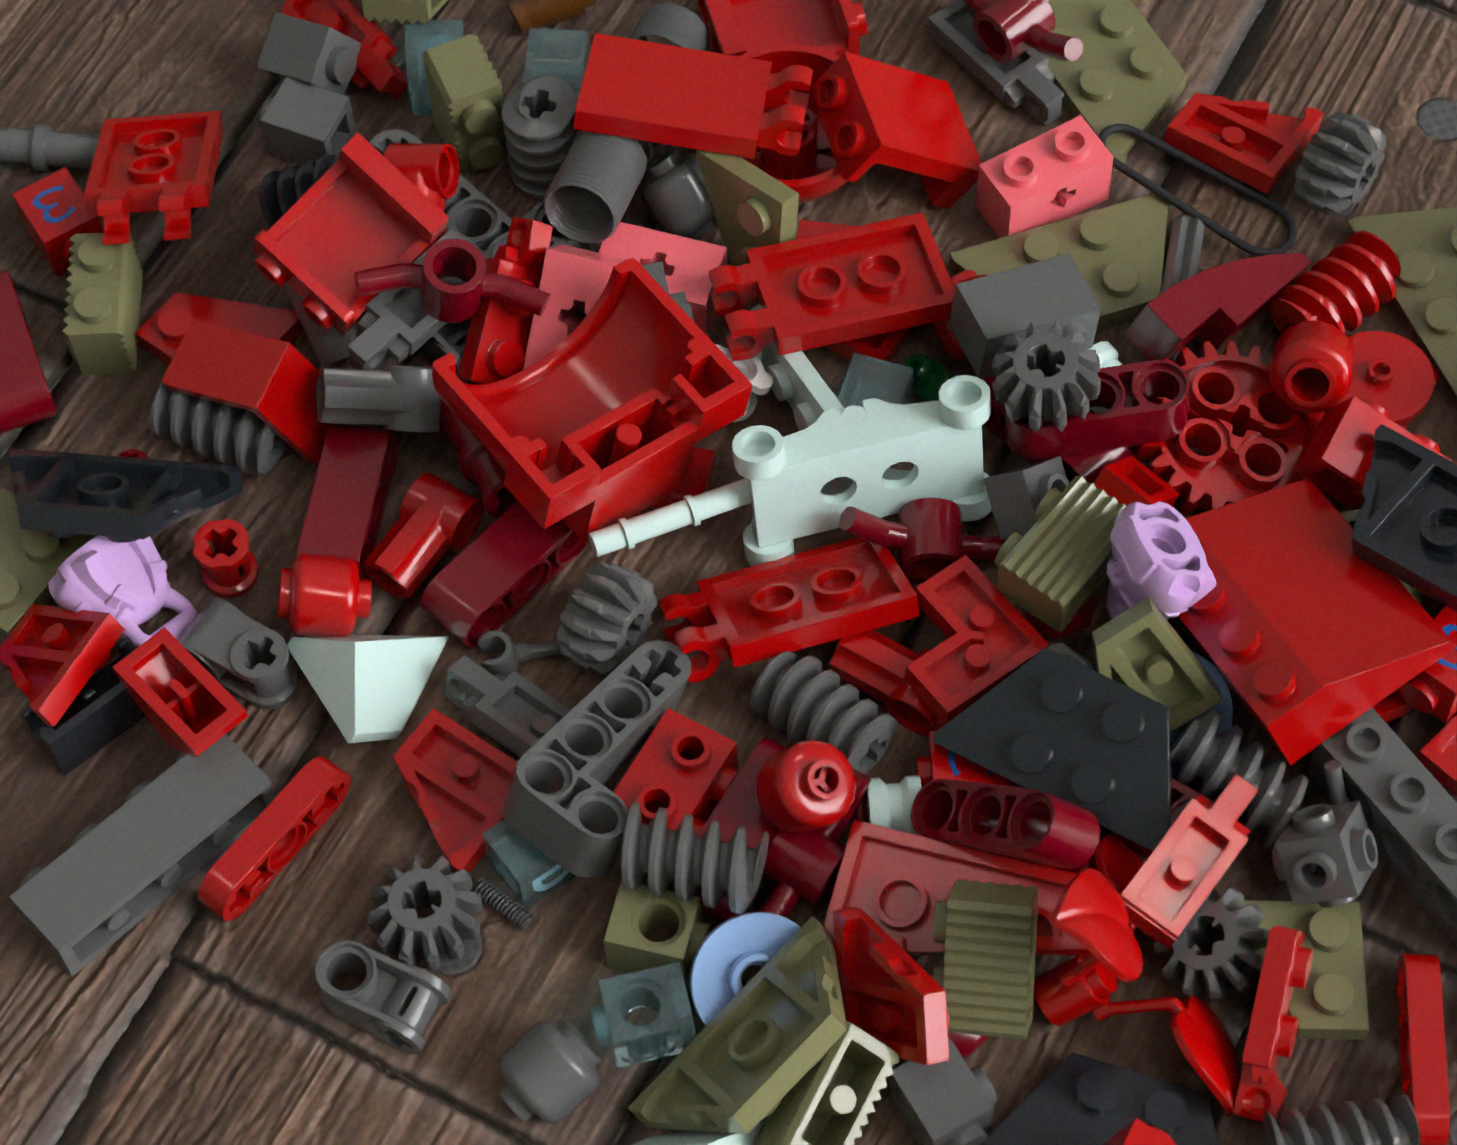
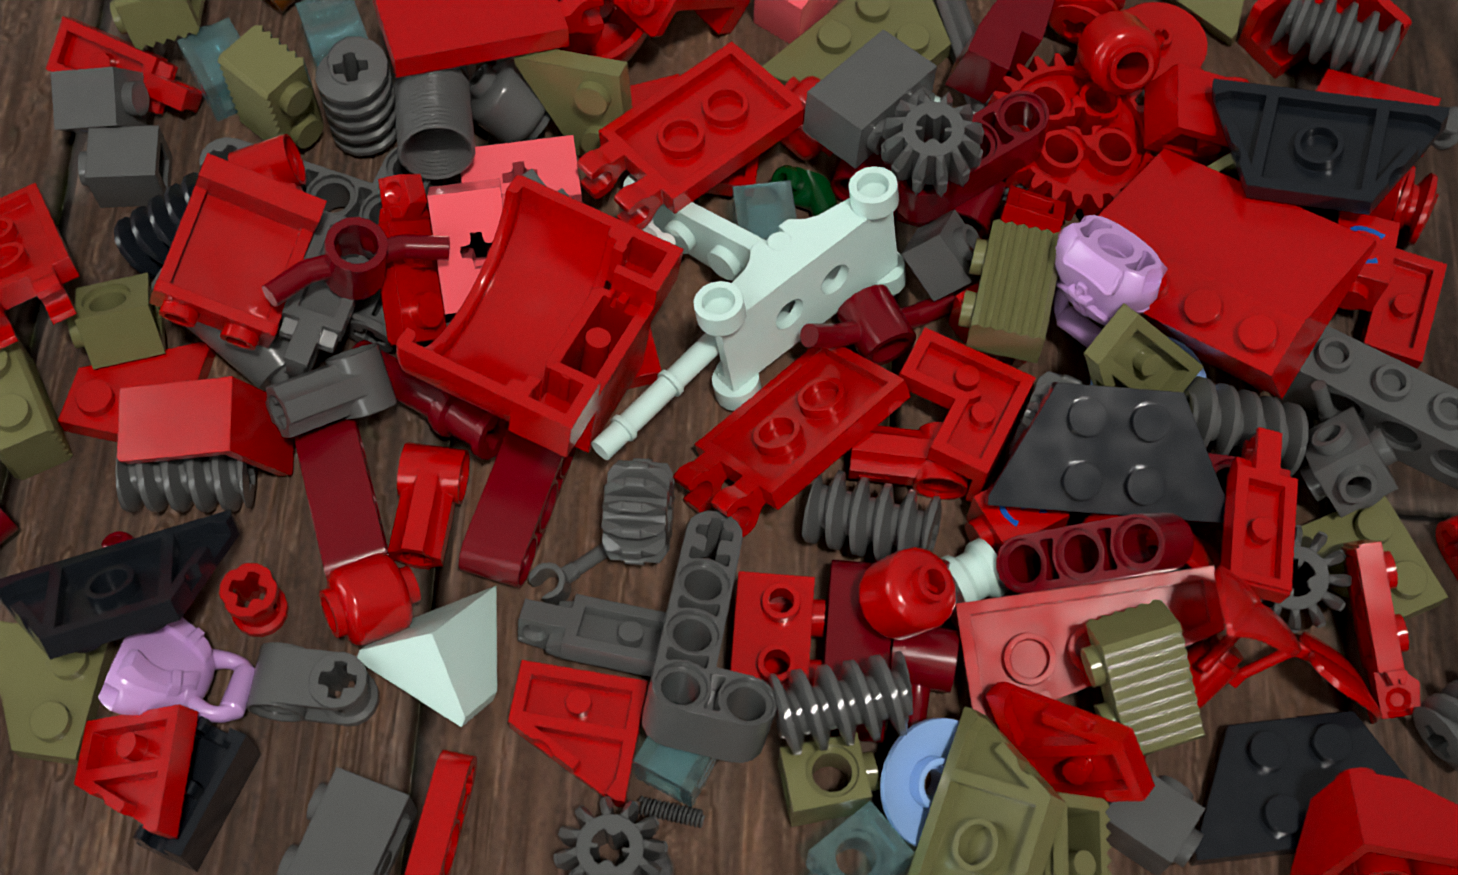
camera: 30 degrees left, 5 degrees up
(178, 694) = (286, 754): red slope -> none
(222, 264) = (117, 321): none -> olive brick

